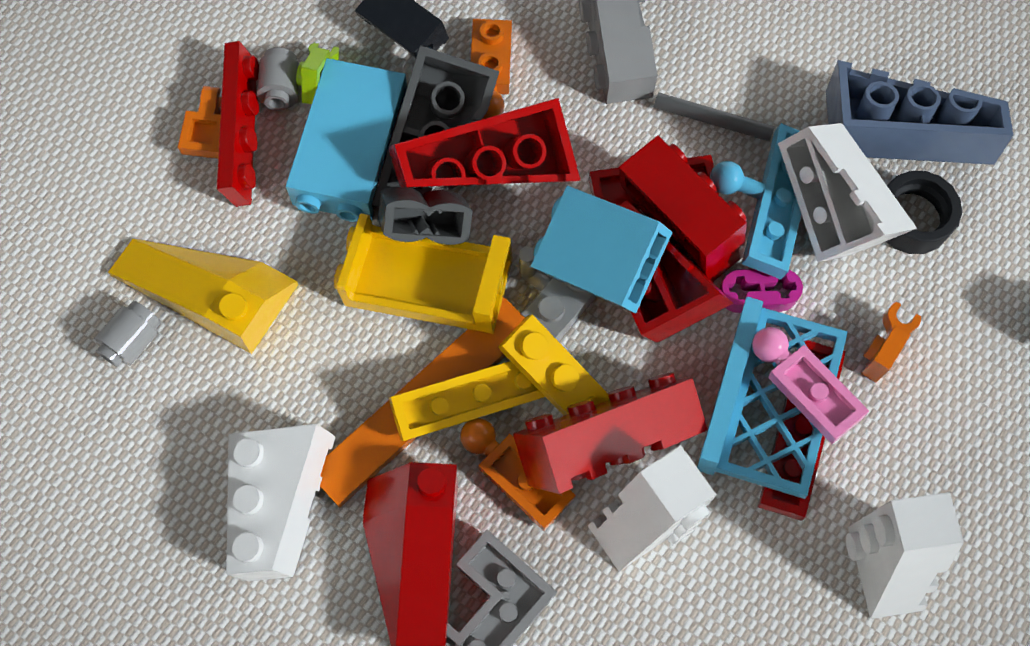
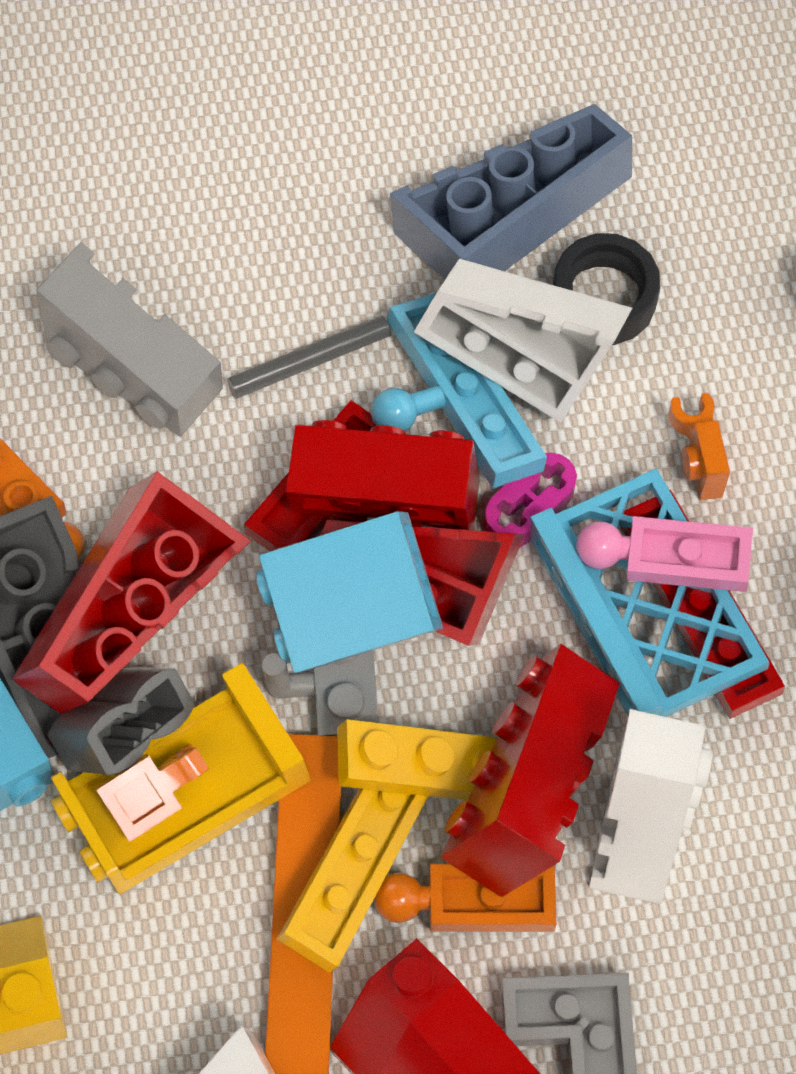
camera: 45 degrees left, 5 degrees down
(399, 263) = (144, 793): none -> plate

